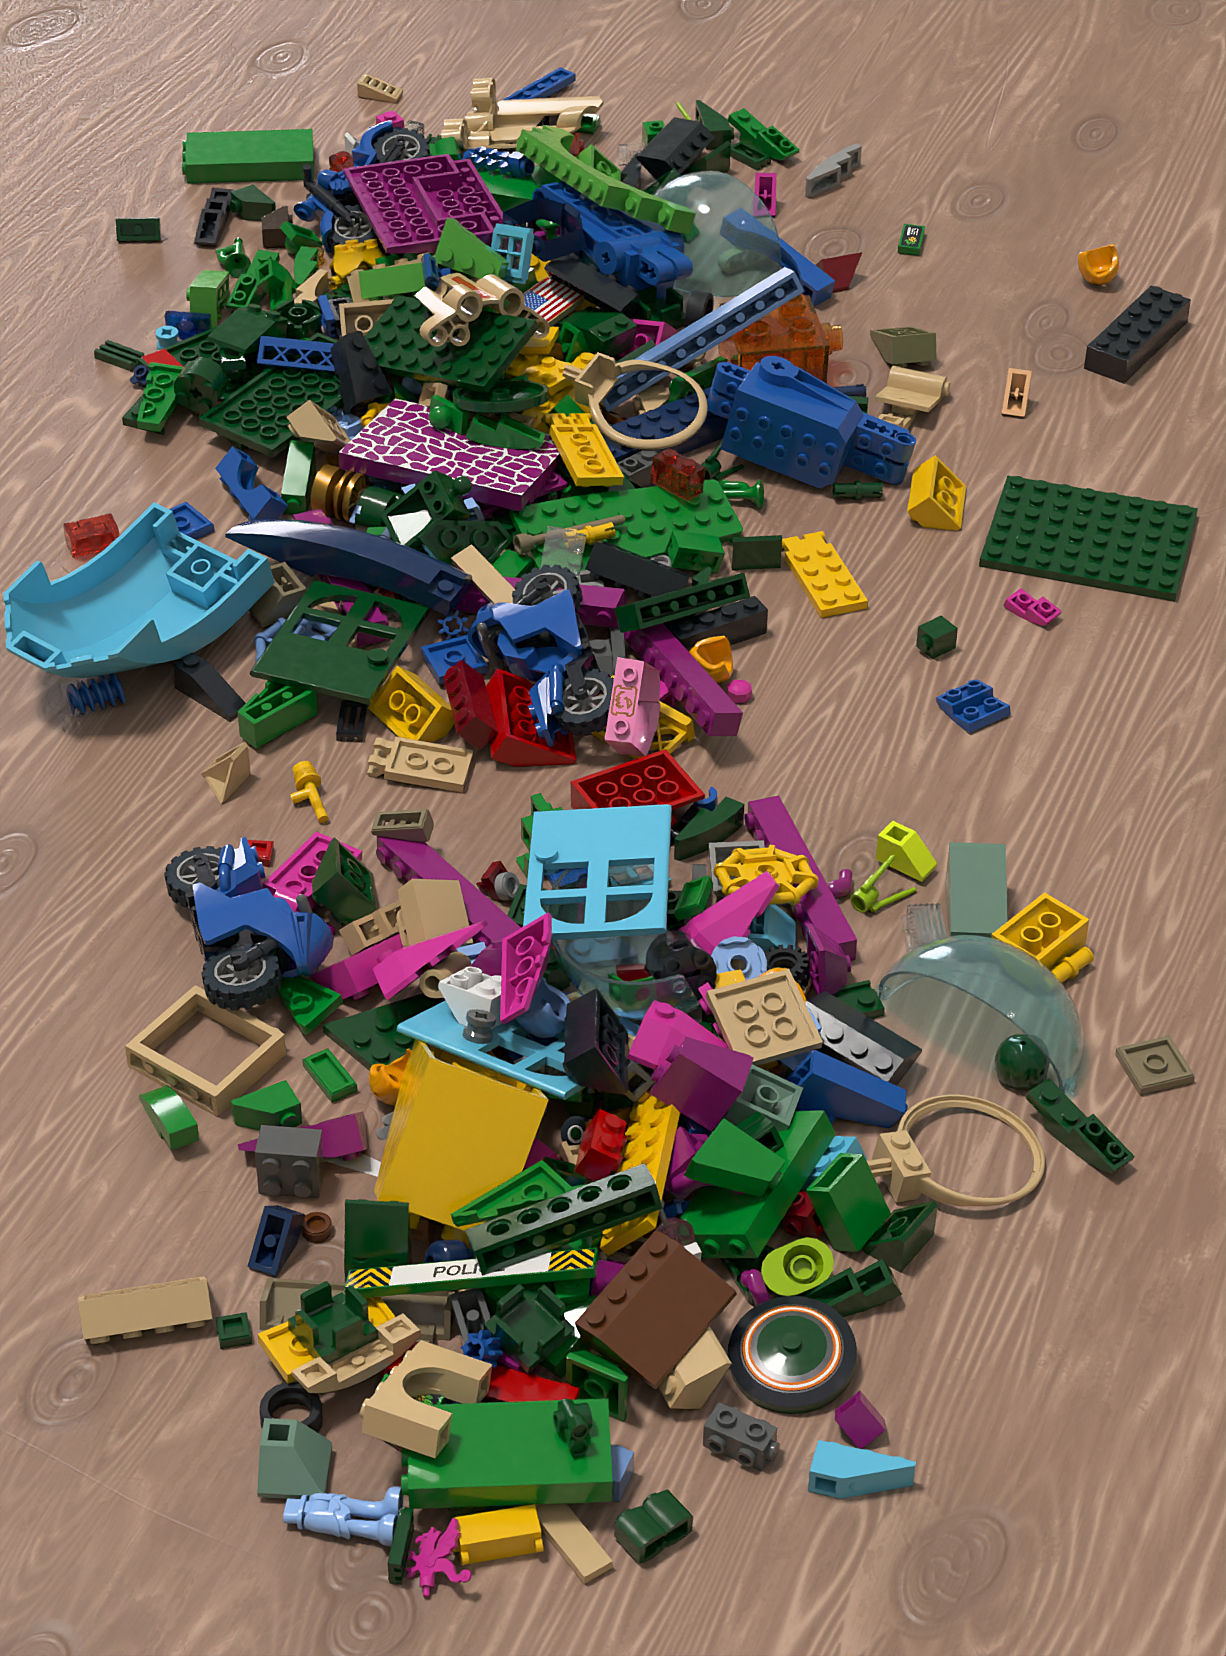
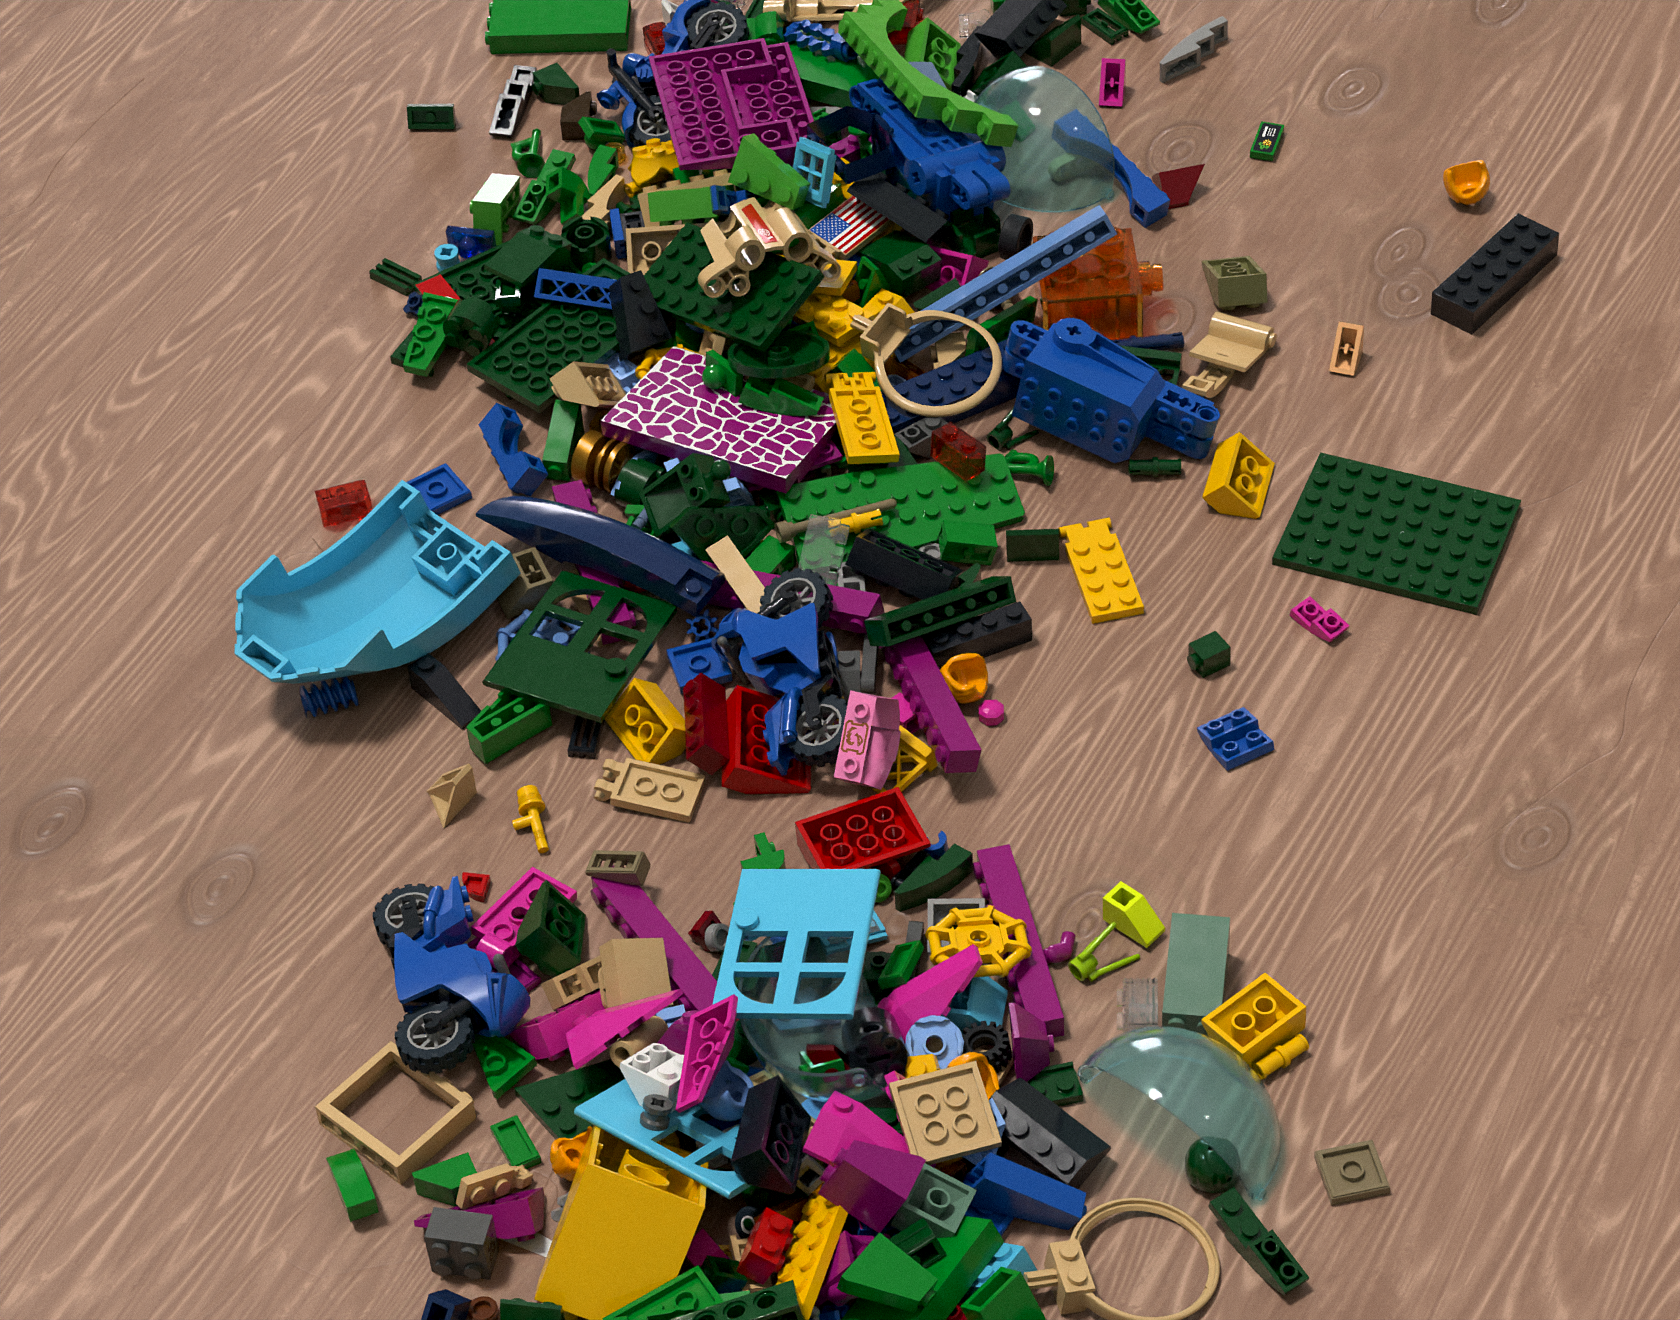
camera: 10 degrees right, 5 degrees up
(313, 1108) = (491, 1184): none -> tan hinge

